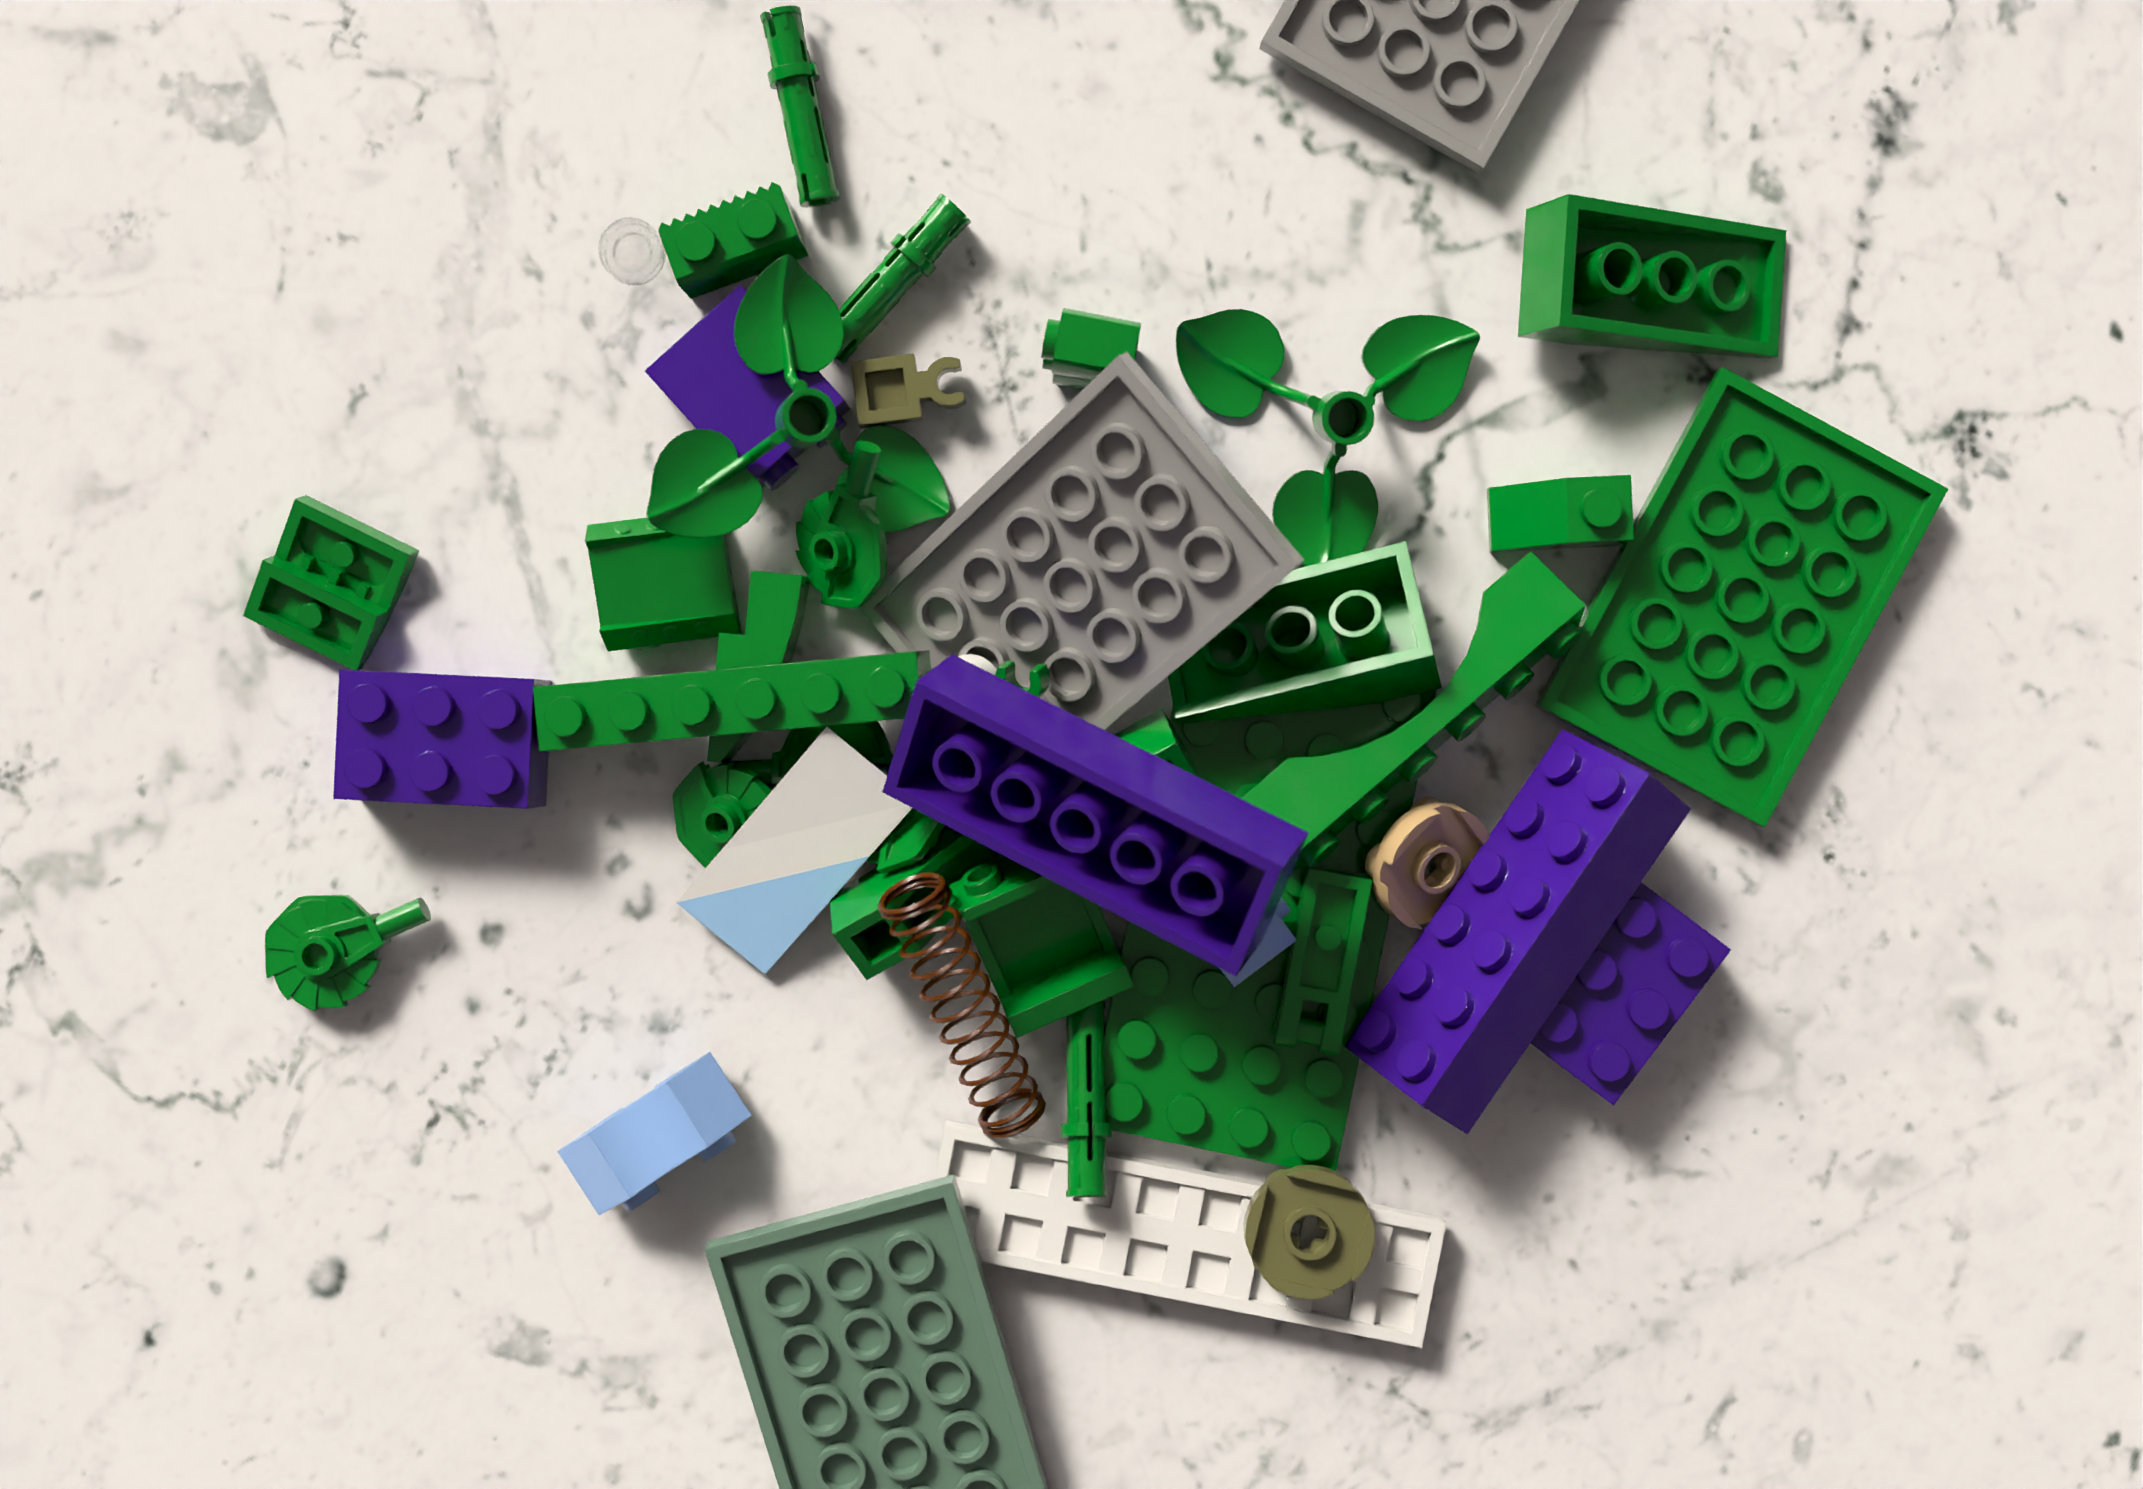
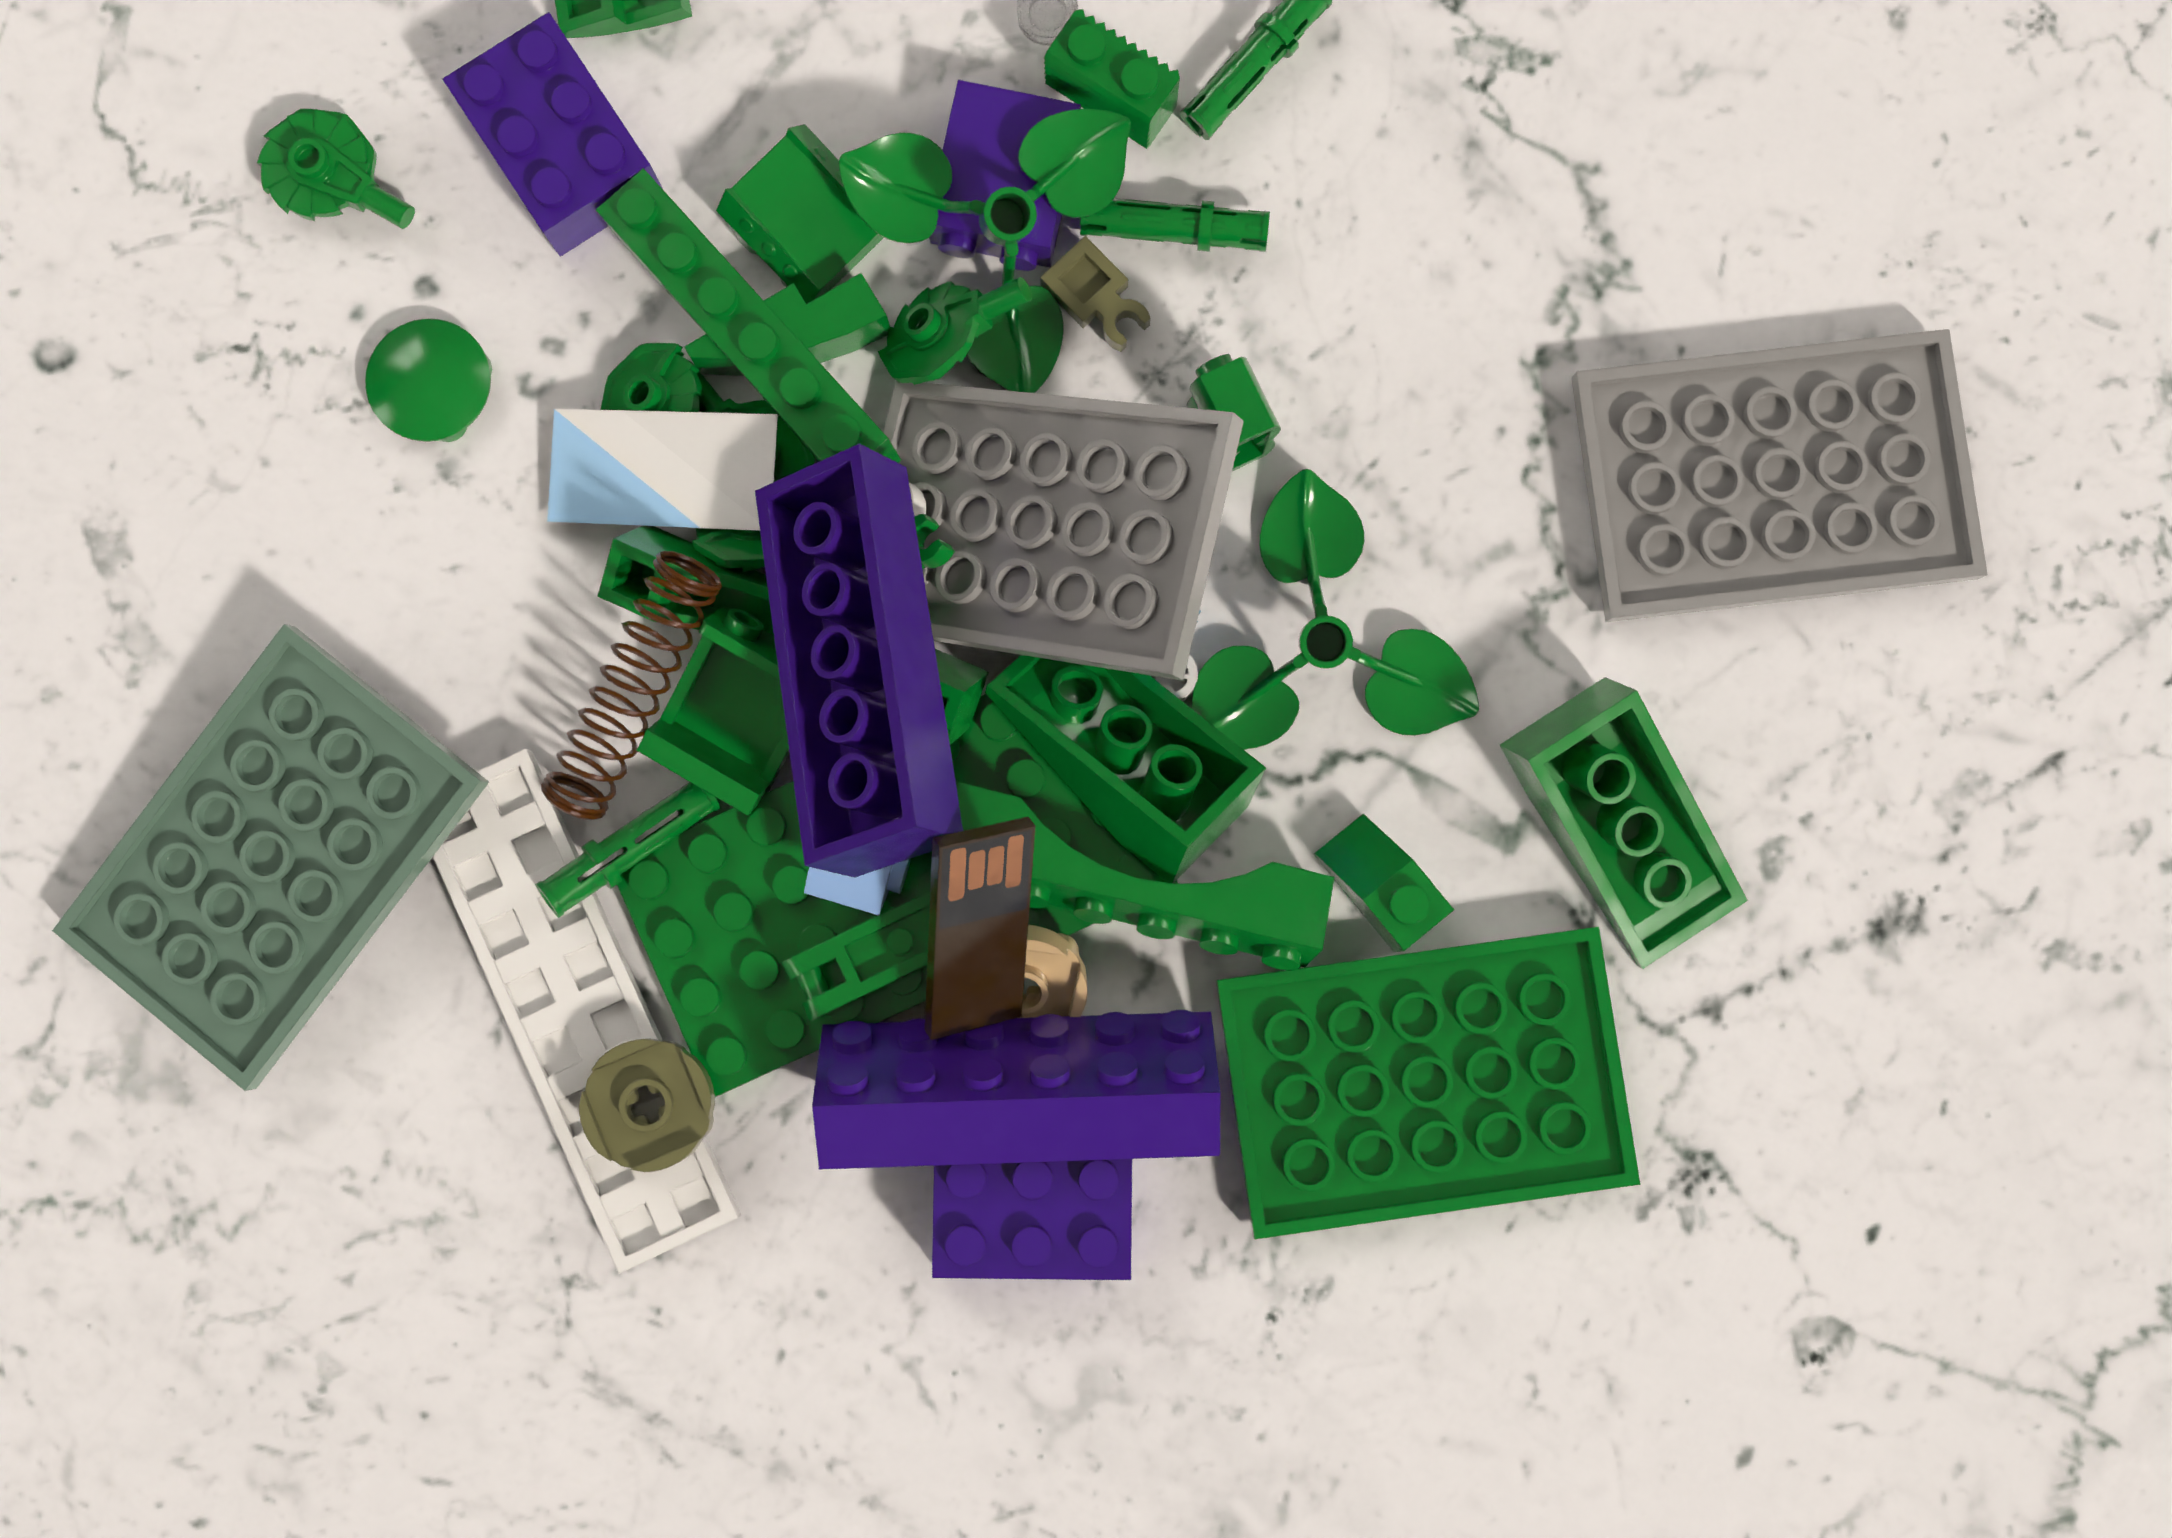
camera: 50 degrees right, 5 degrees down
(575, 988) = (428, 380): none -> green dish
(654, 1135) = (352, 523): light blue brick -> none
(1376, 869) = (978, 926): none -> dark brown piece

